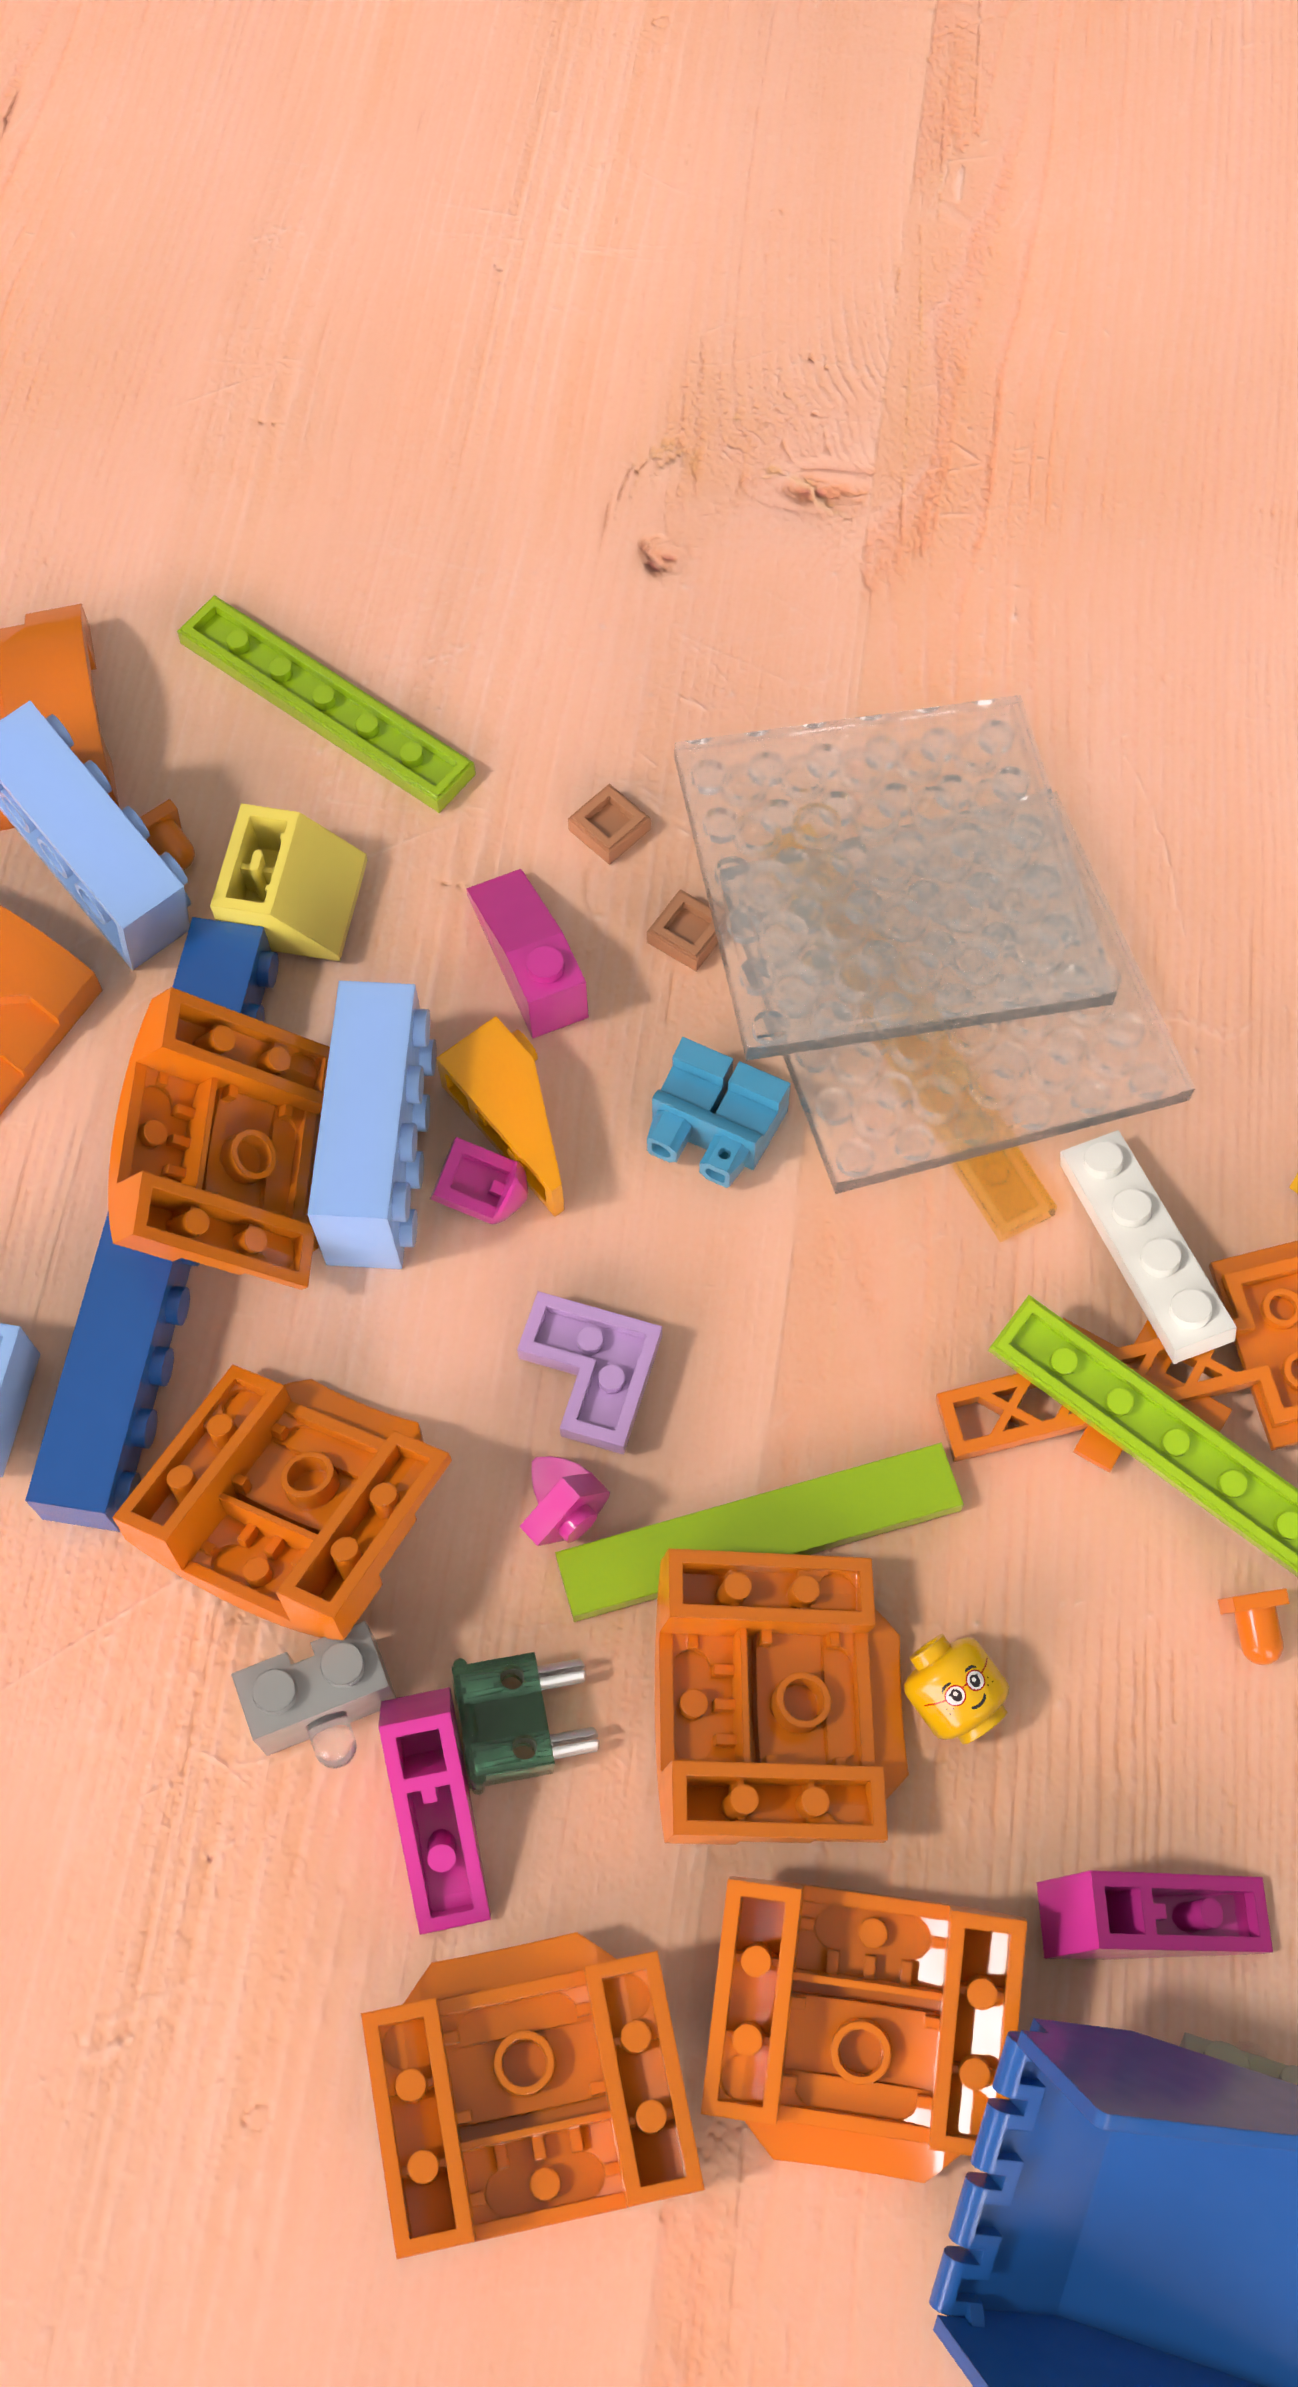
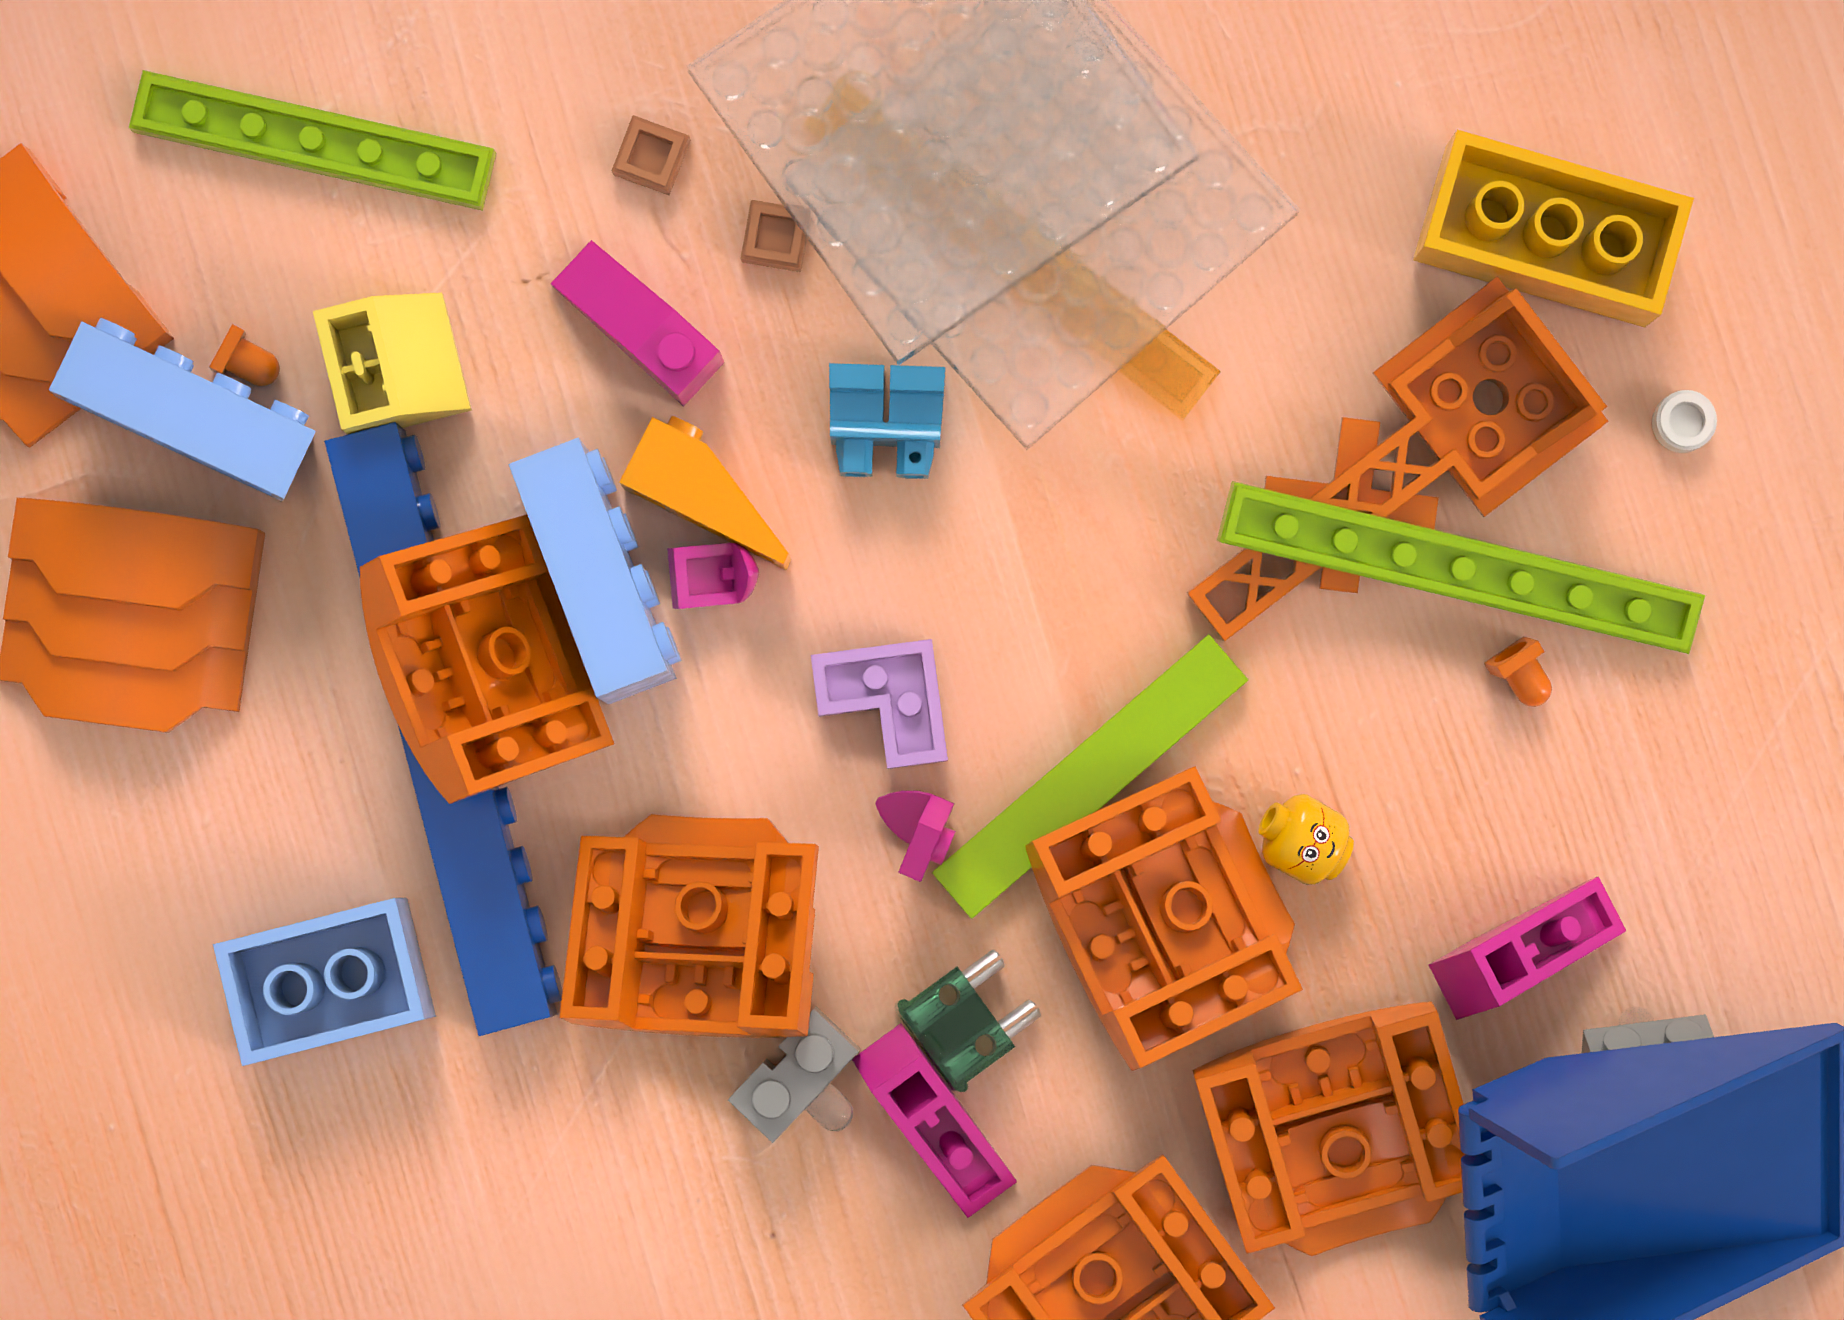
camera: 25 degrees left, 20 degrees up
(1147, 1247) = (1312, 379): white plate -> none

